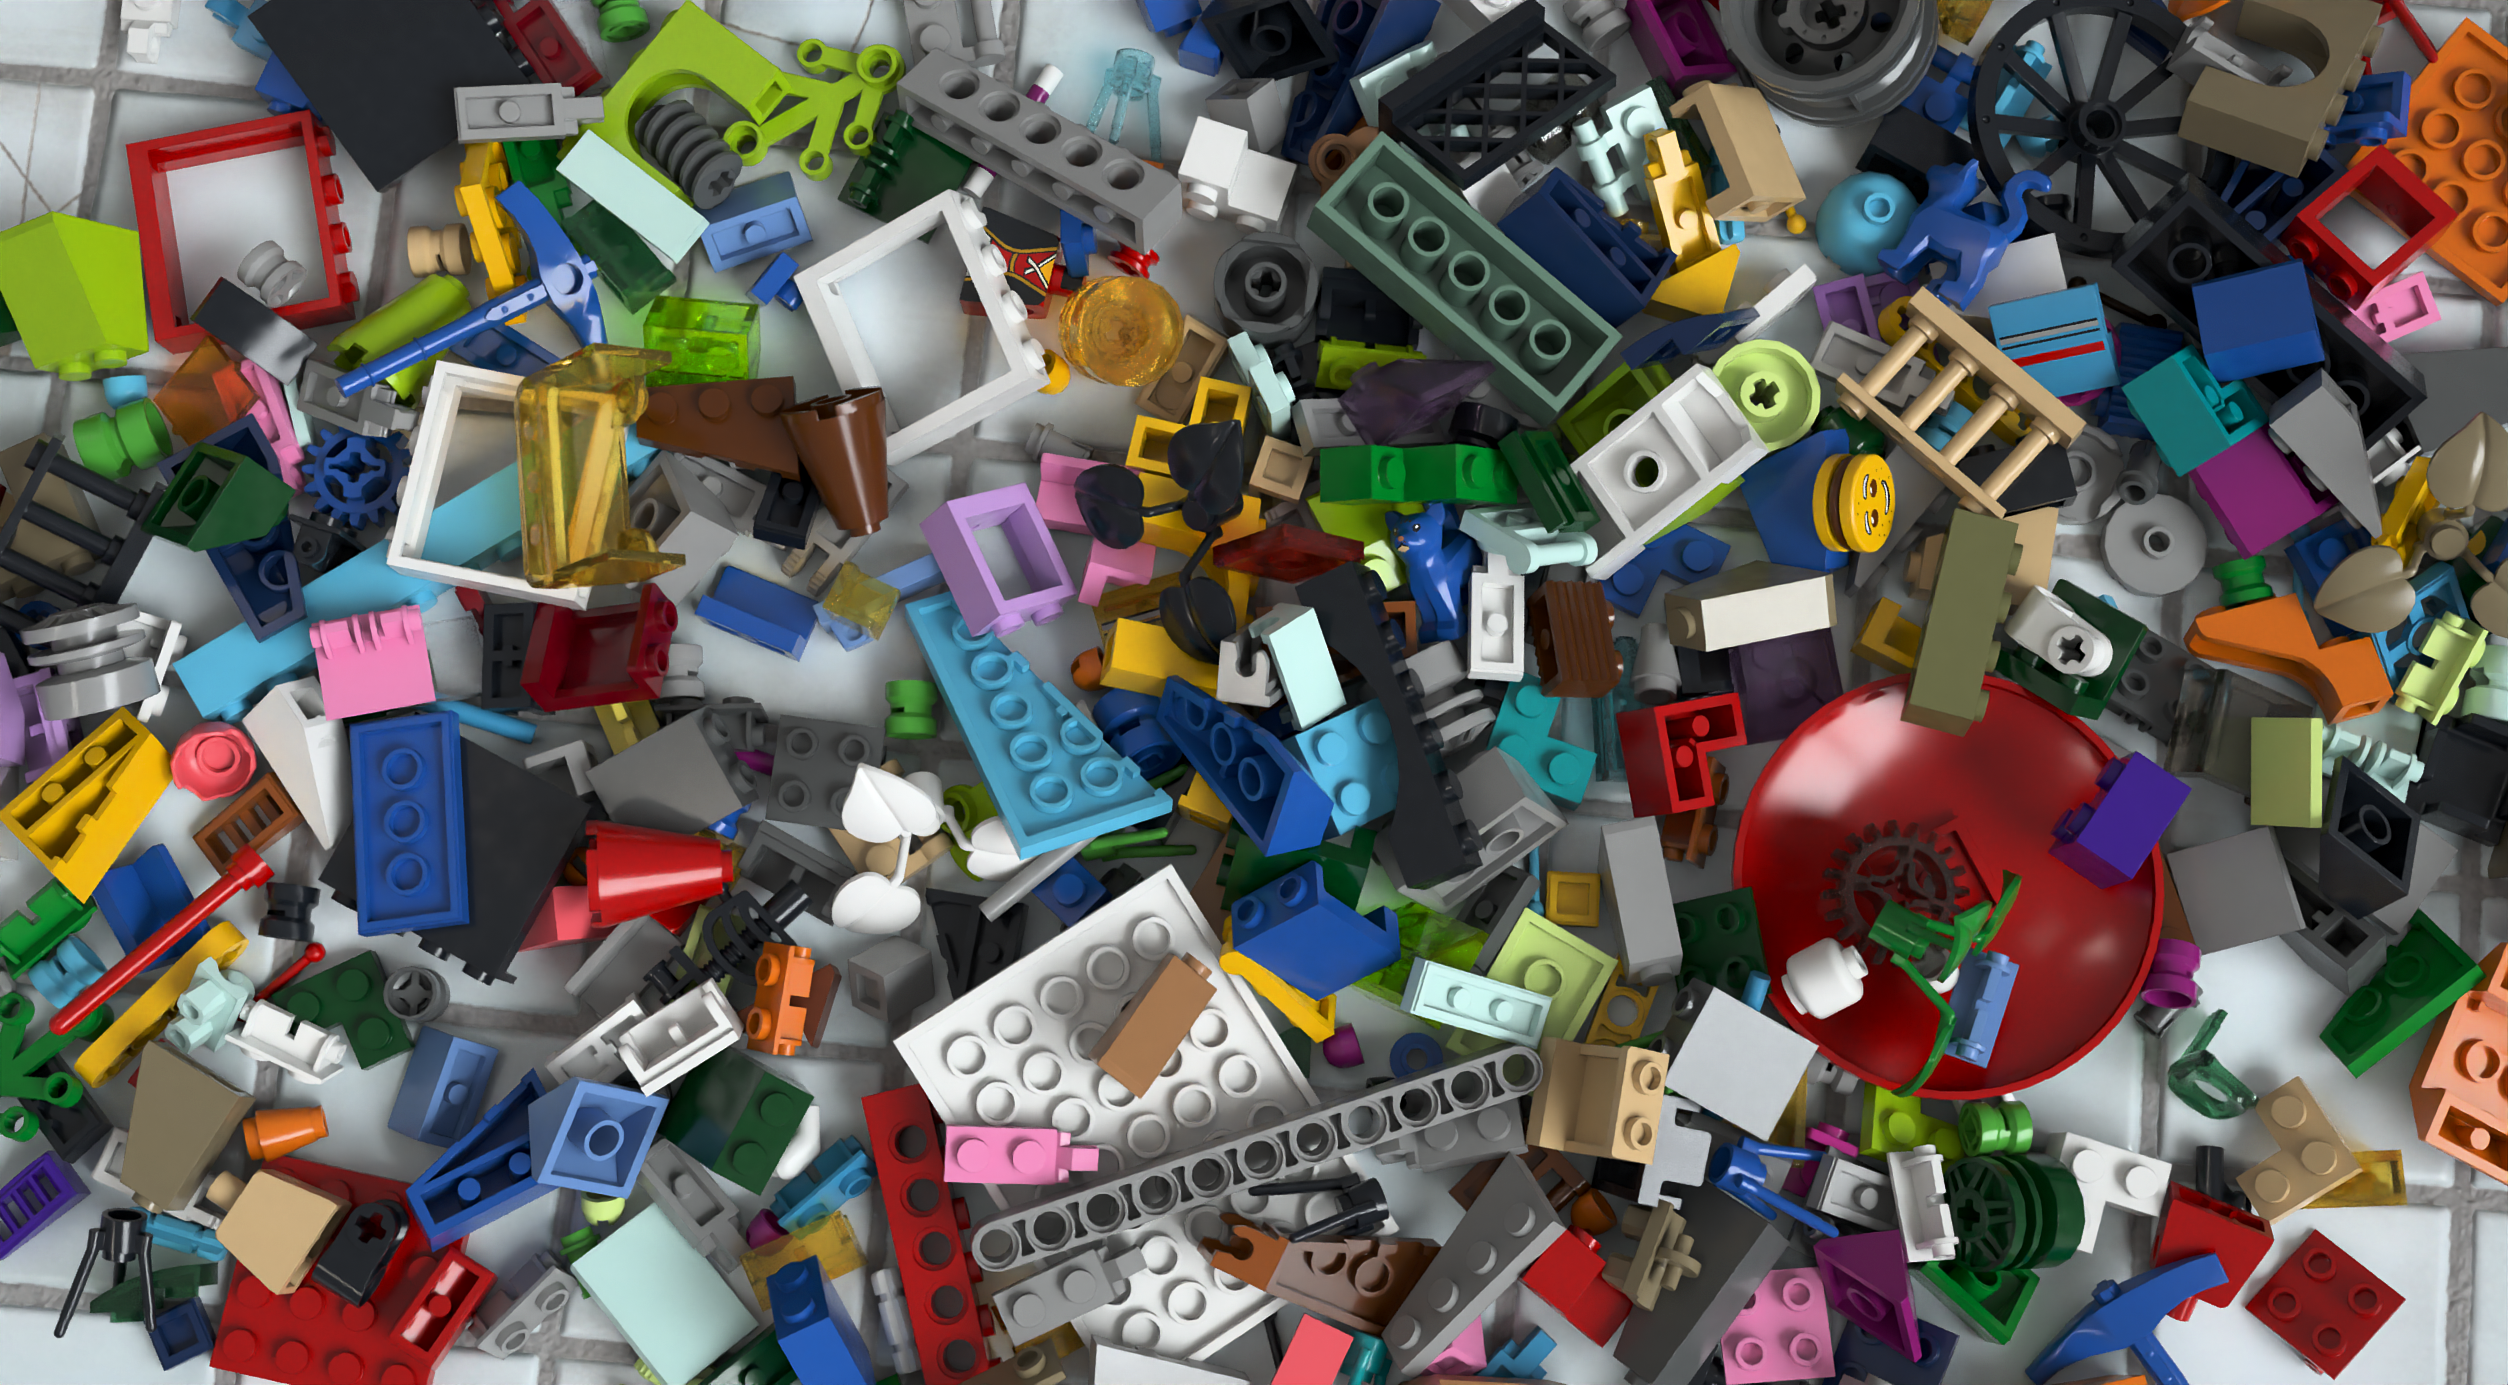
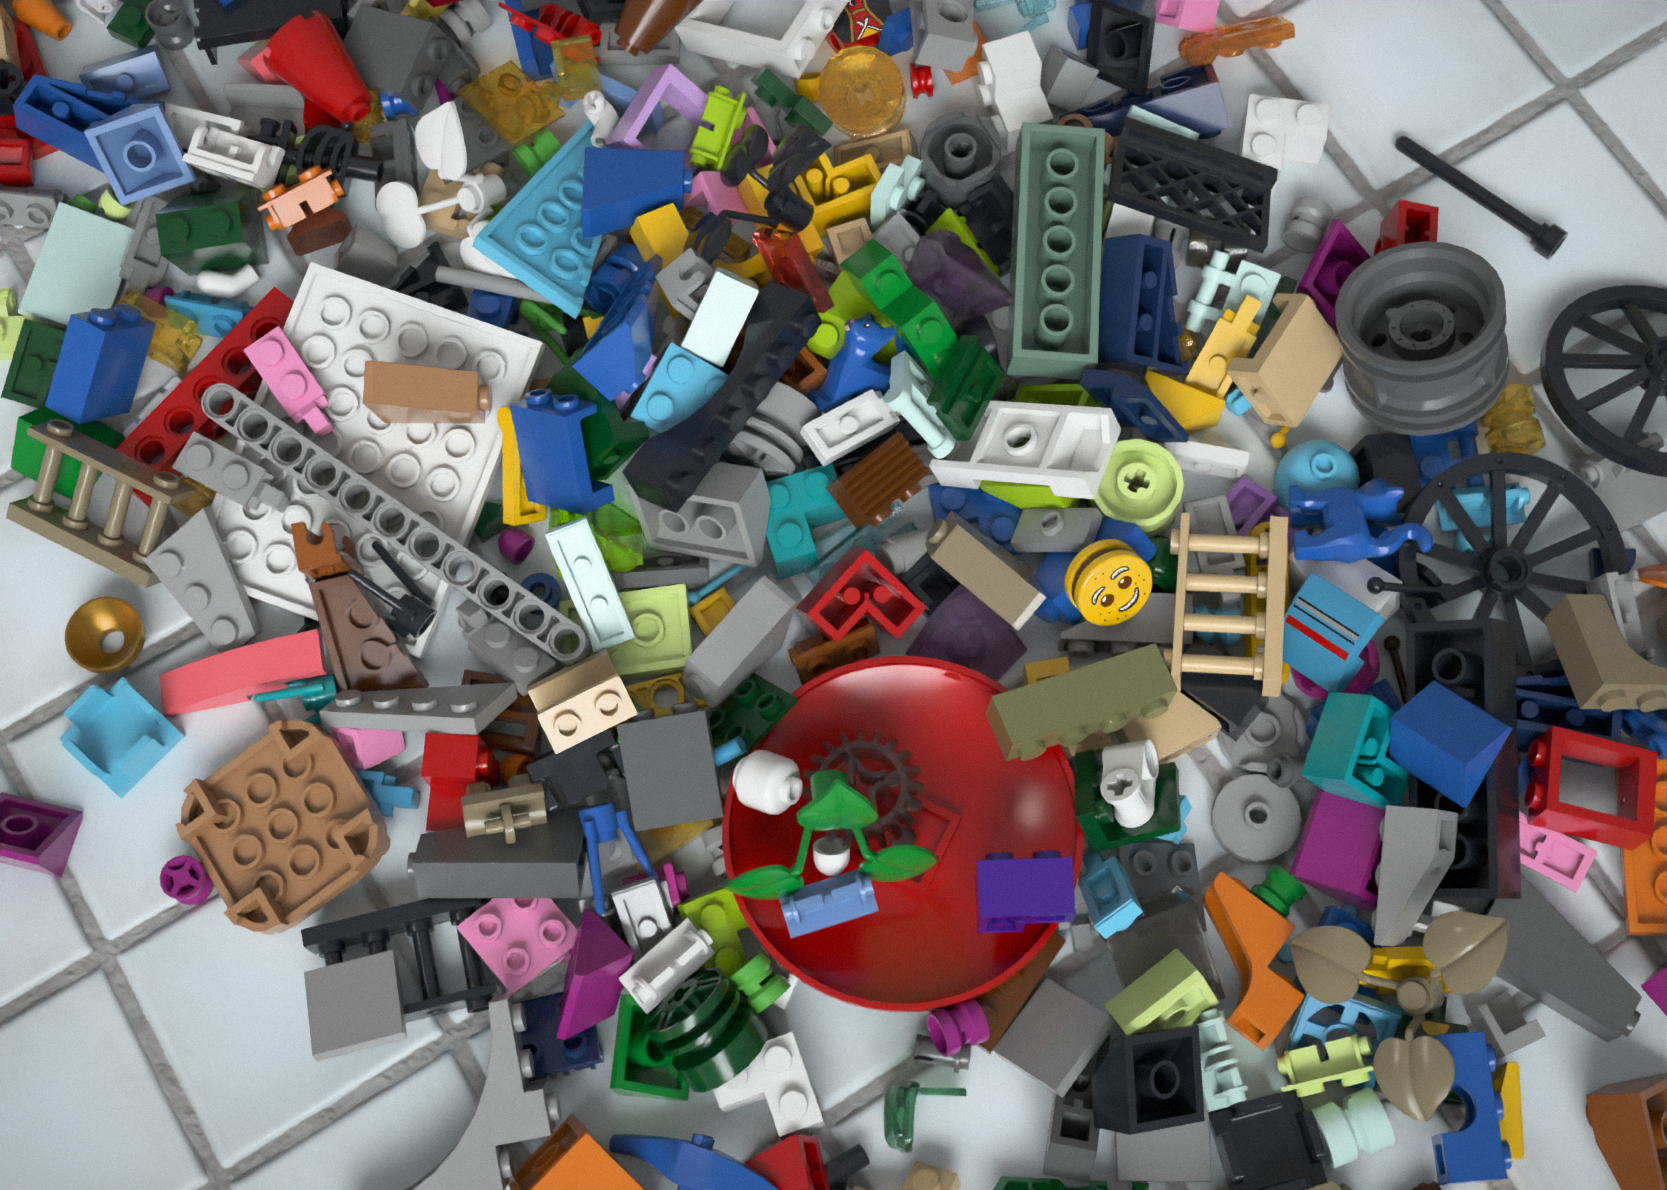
camera: 60 degrees right, 10 degrees down
(788, 584) = (555, 24): none -> red hinge
(834, 694) = (513, 102): none -> clear yellow hinge
(931, 614) = (602, 117): none -> white arm
(1039, 486) = (726, 116): none -> lime hinge
(1057, 648) = (629, 184): none -> blue slope
(1084, 412) = (798, 107): none -> dark green plate
(1749, 507) = (1056, 529): none -> light grey plate
(2089, 203) = (1444, 592): none -> black hinge
(2167, 739) = (1108, 894): none -> medium azure hinge

